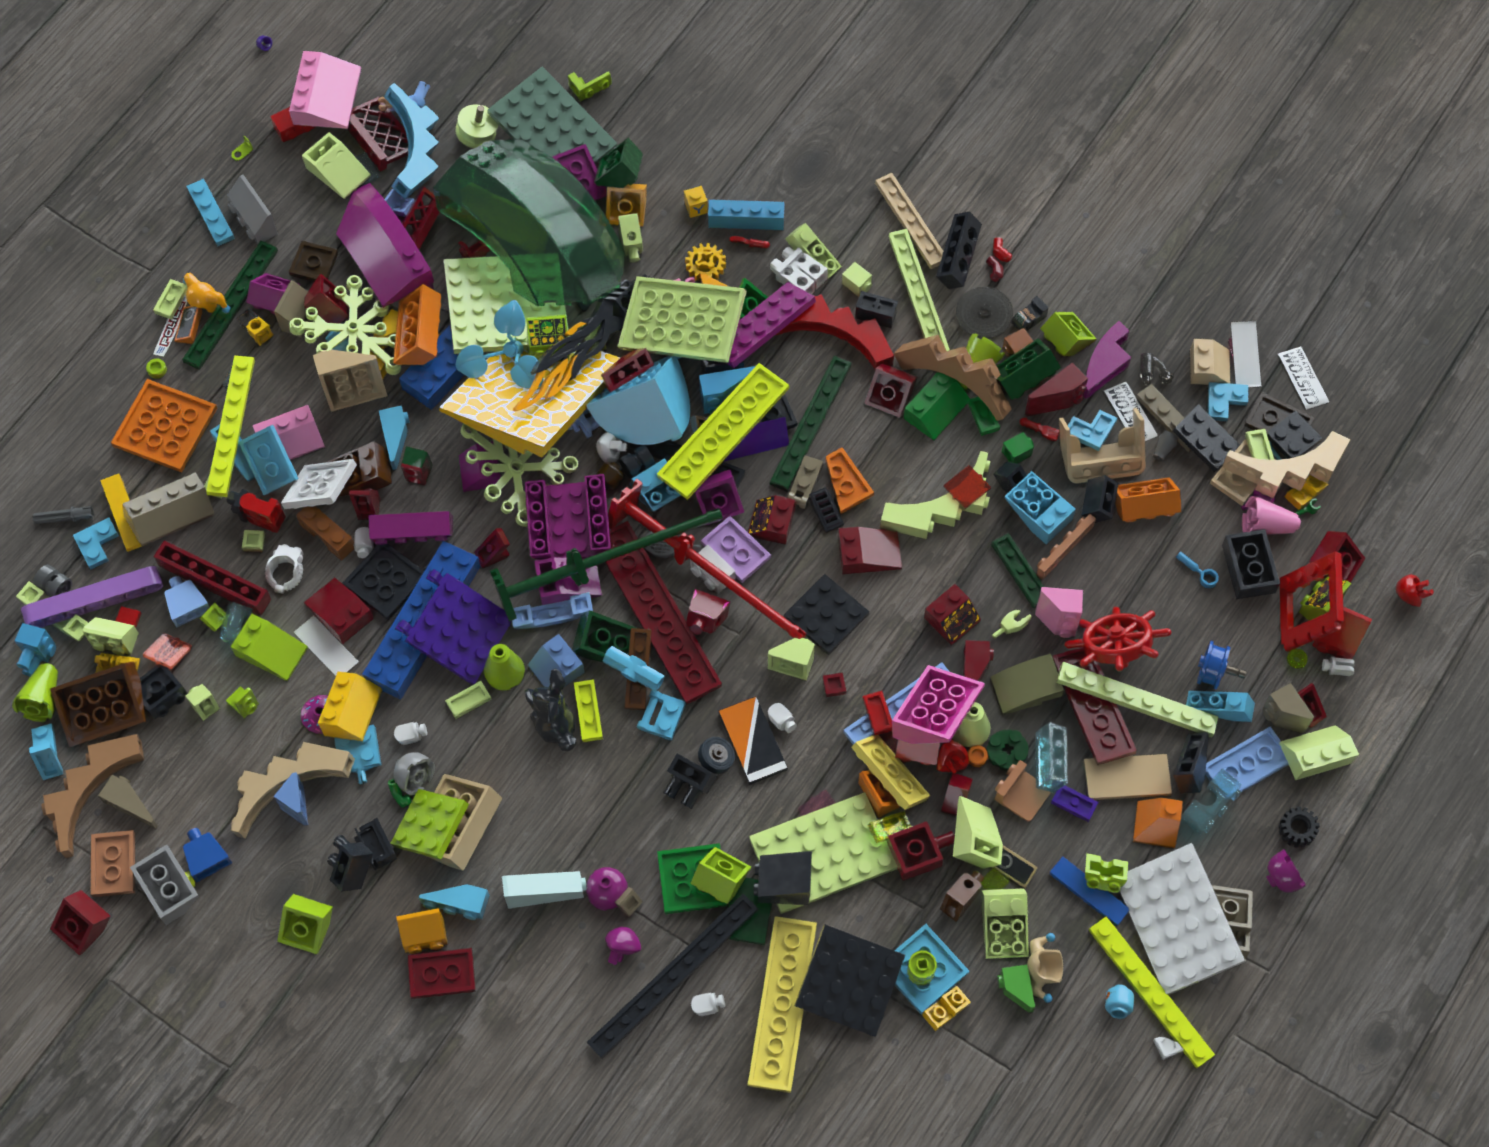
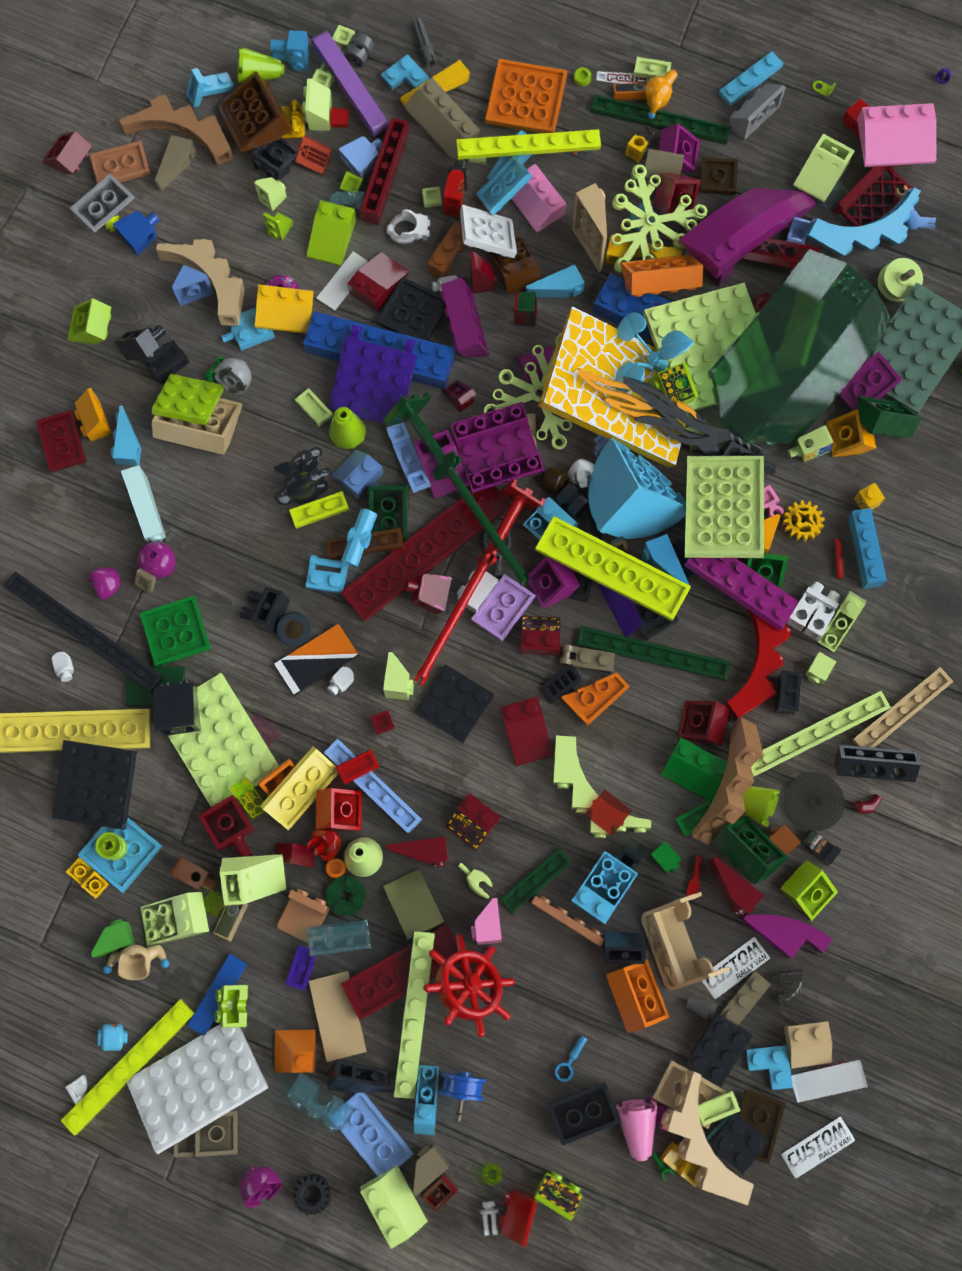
camera: 80 degrees right, 10 degrees up
(410, 733) = (272, 365): white arm -> none
(627, 368) = (659, 466): dark red slope -> none
(720, 875) = (176, 653): lime slope -> none
(935, 707) = (359, 816): dark pink slope -> none
(999, 252) = (888, 806): red arm -> none
(1094, 433) = (698, 930): medium azure plate -> none
(1297, 636) = (574, 1179): red hinge -> none
(1350, 554) = (609, 1205): dark red slope -> none

